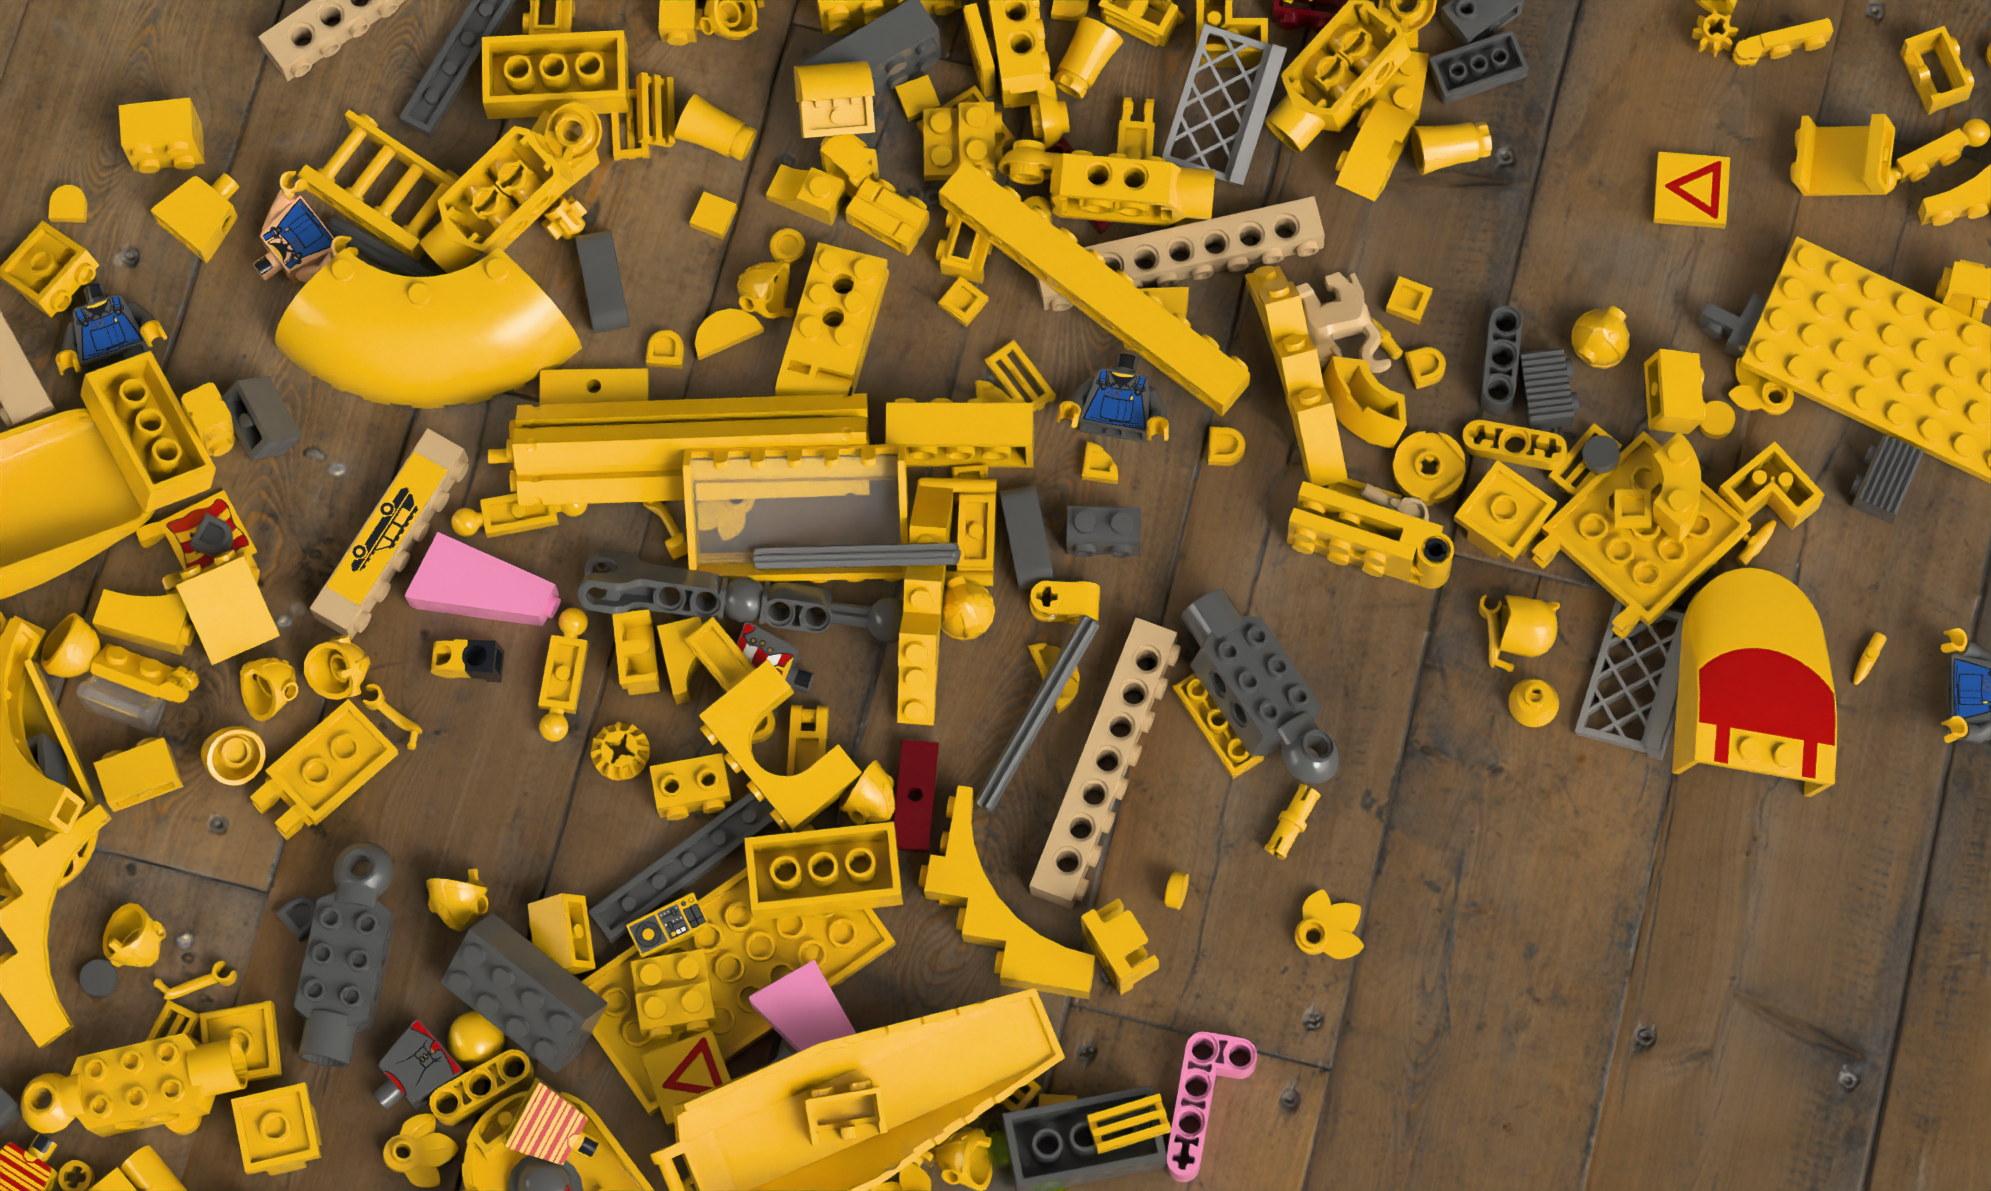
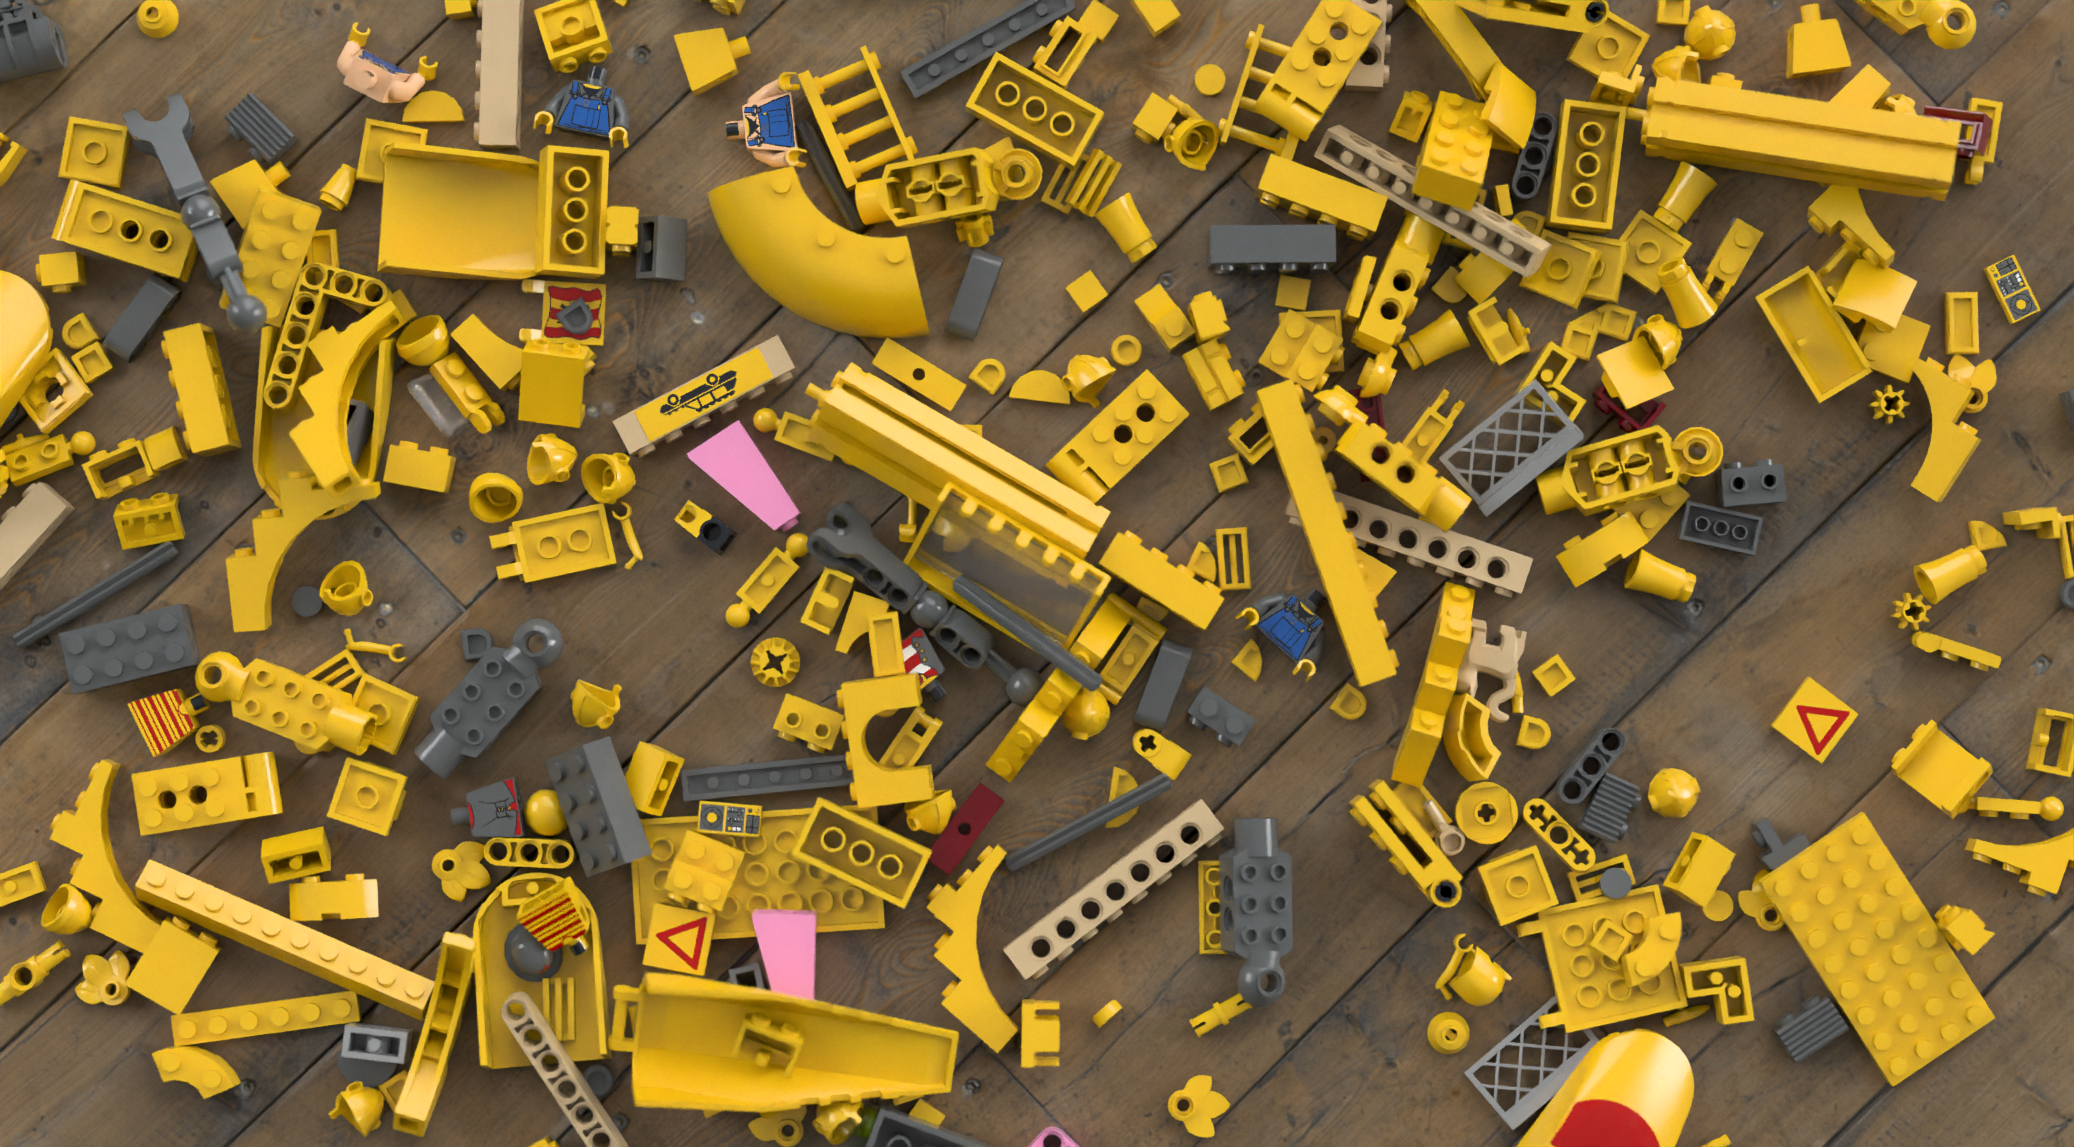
camera: 20 degrees right, 15 degrees up
(835, 98) = (1223, 273): yellow brick -> none

